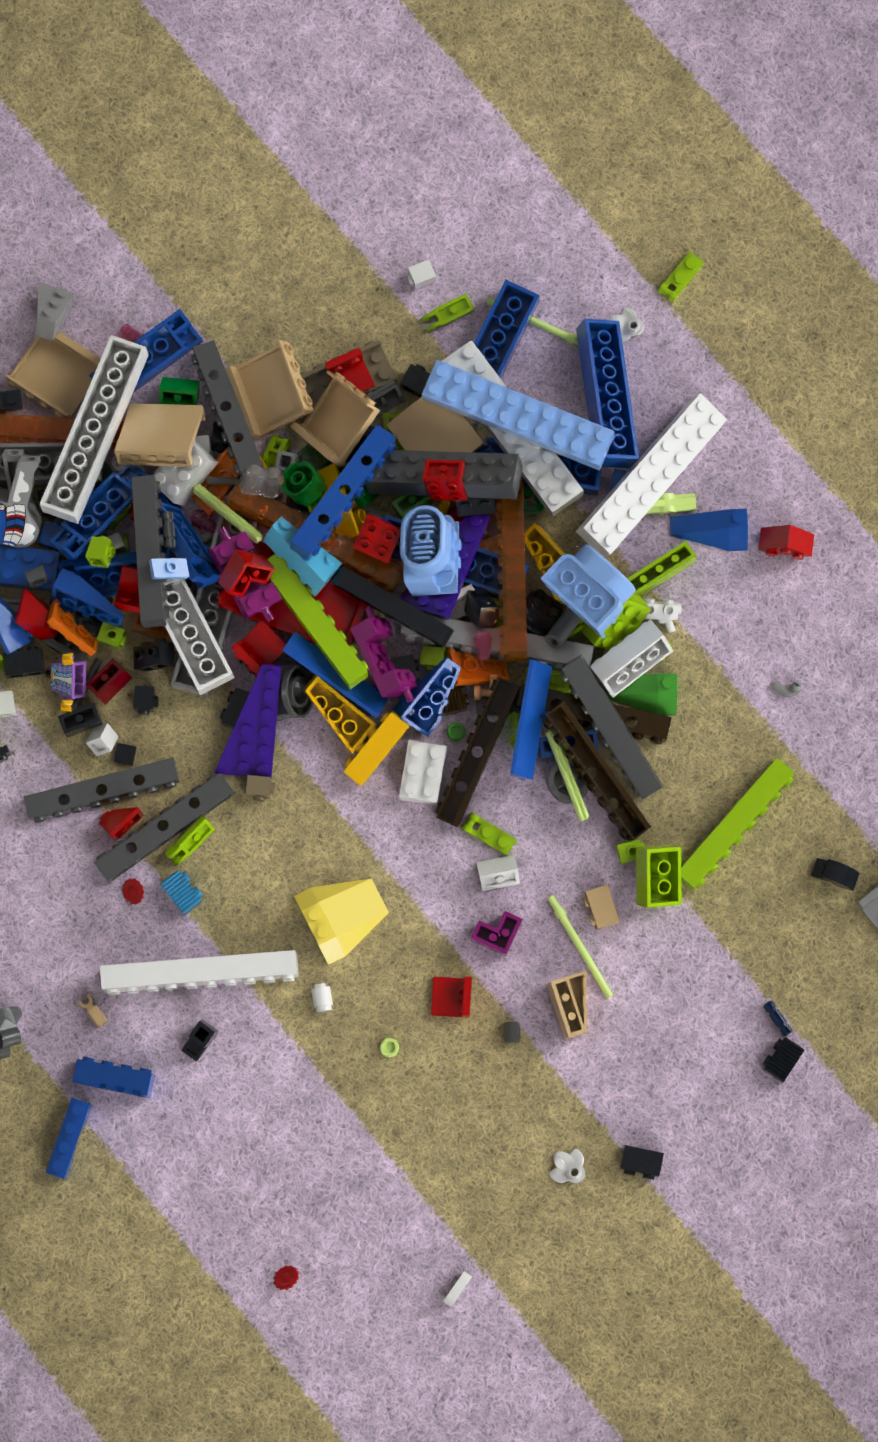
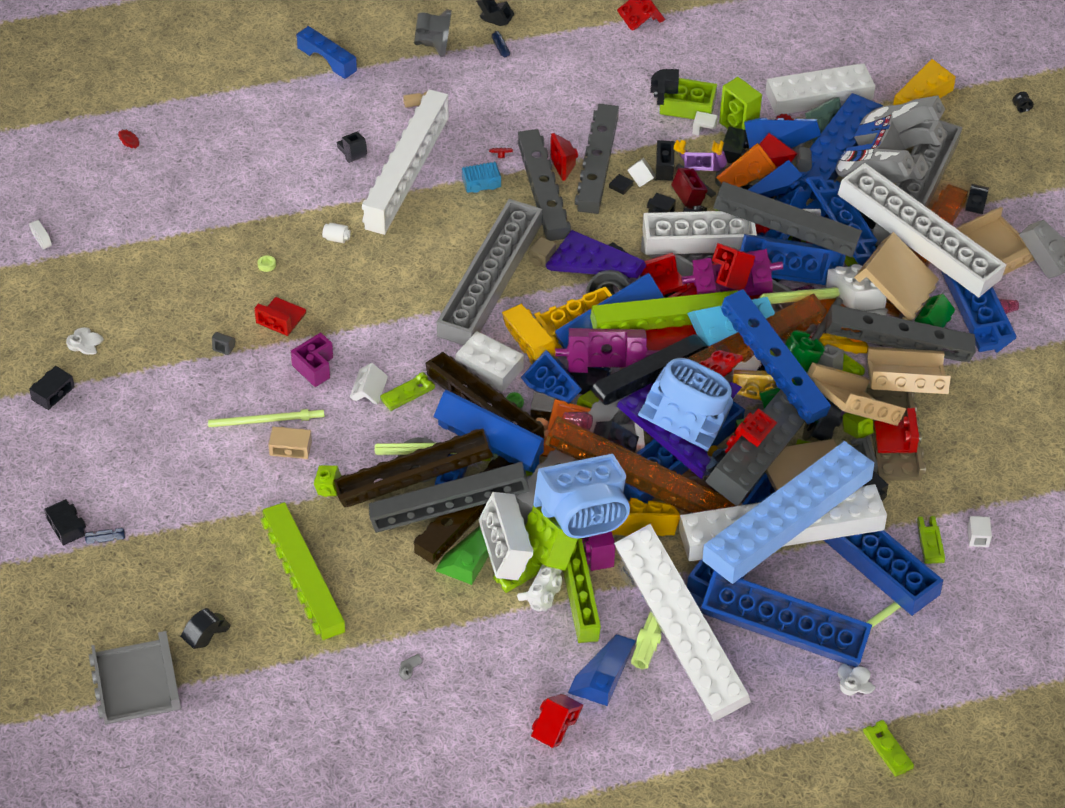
camera: 110 degrees right, 30 degrees down
(100, 551) = (804, 196): lime brick -> none
(114, 1078) = (353, 91): blue wedge -> none
(169, 530) = (800, 239): dark grey axle -> none
(169, 568) = (762, 217): light blue plate -> none
(190, 841) = (521, 192): lime hinge -> none
(261, 481) = (816, 317): clear brick -> none
(310, 822) = (489, 272): none -> light grey brick
(341, 914) = (399, 267): light yellow wedge -> none
(569, 1003) = (219, 385): tan wedge -> none
(658, 876) = (289, 482): lime brick -> none

